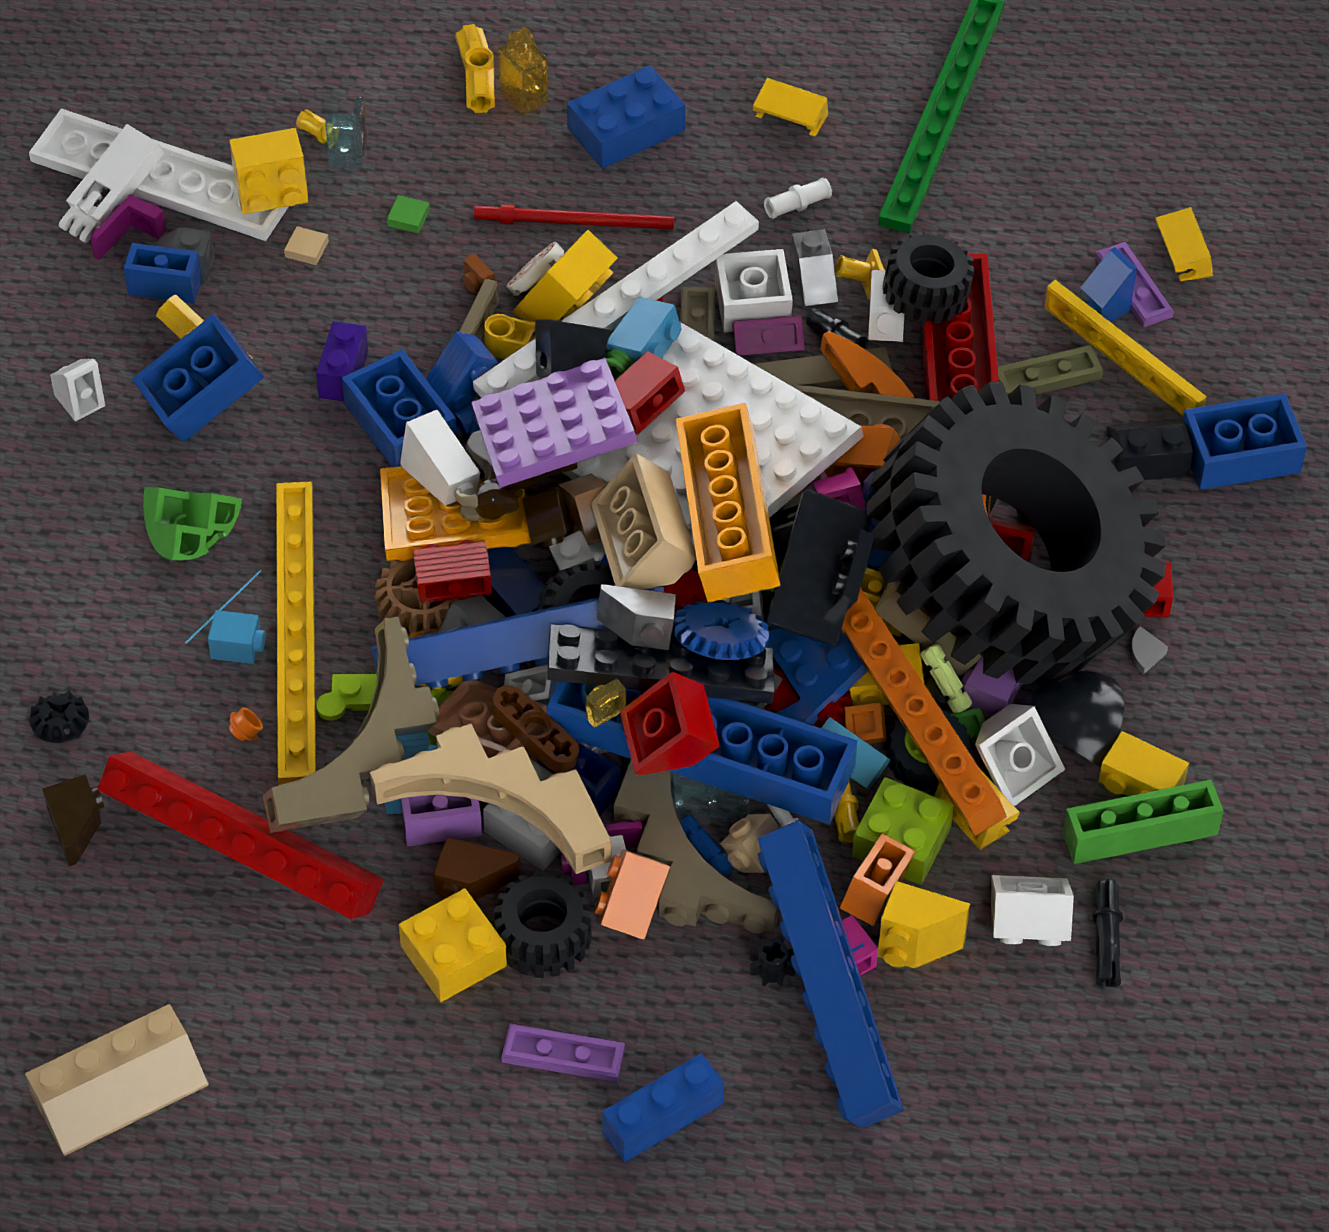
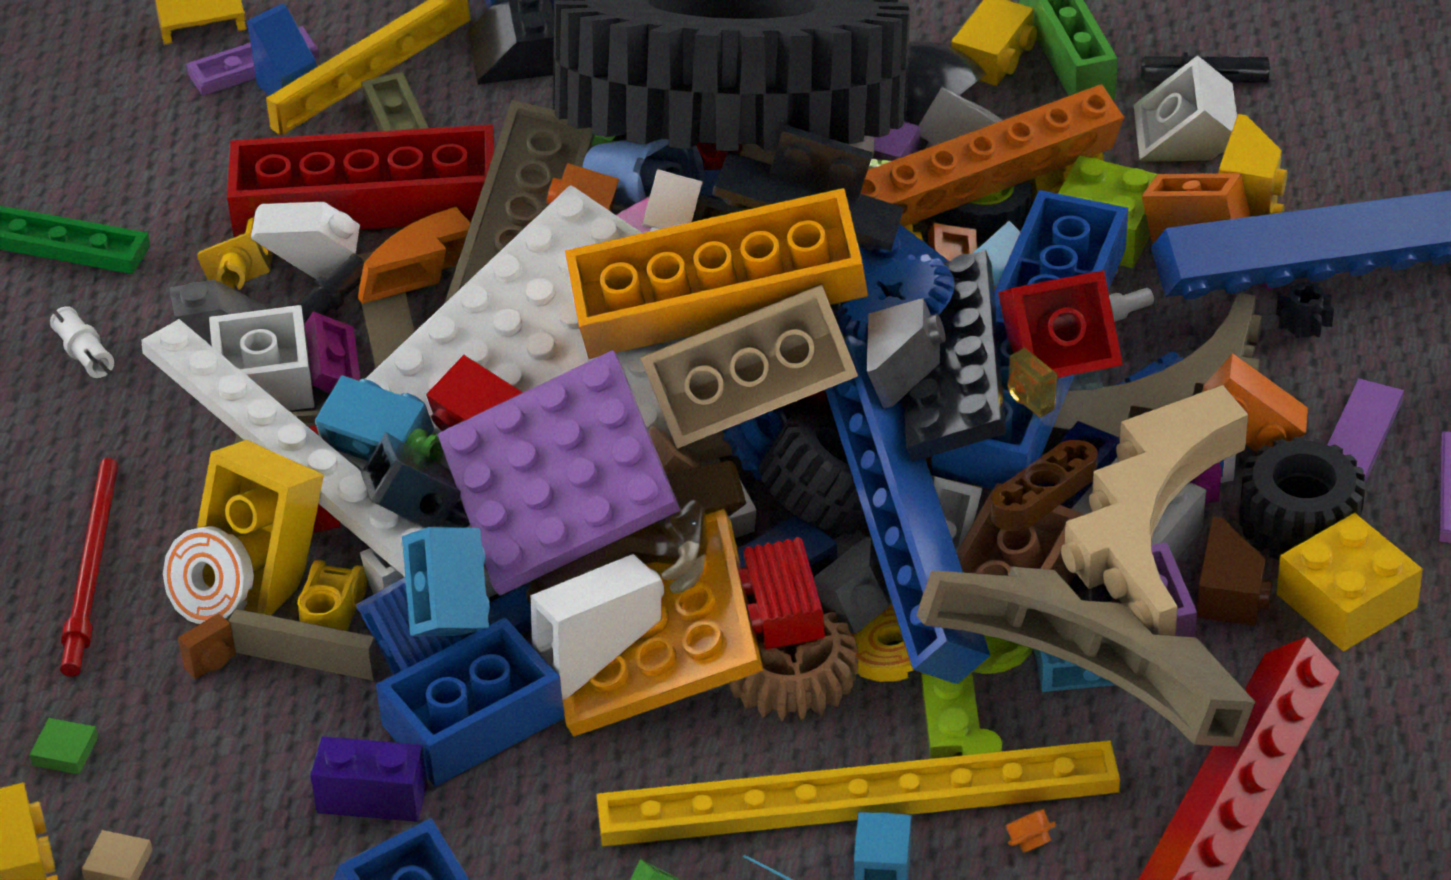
camera: 90 degrees left, 10 degrees down
(464, 369) = (445, 581): none -> dark azure brick
(631, 987) = (1366, 422): none -> medium lavender tile
(743, 842) = (1149, 325): tan brick -> none
(833, 480) = (671, 201): none -> white slope
(928, 277) = (295, 162): black tyre -> none

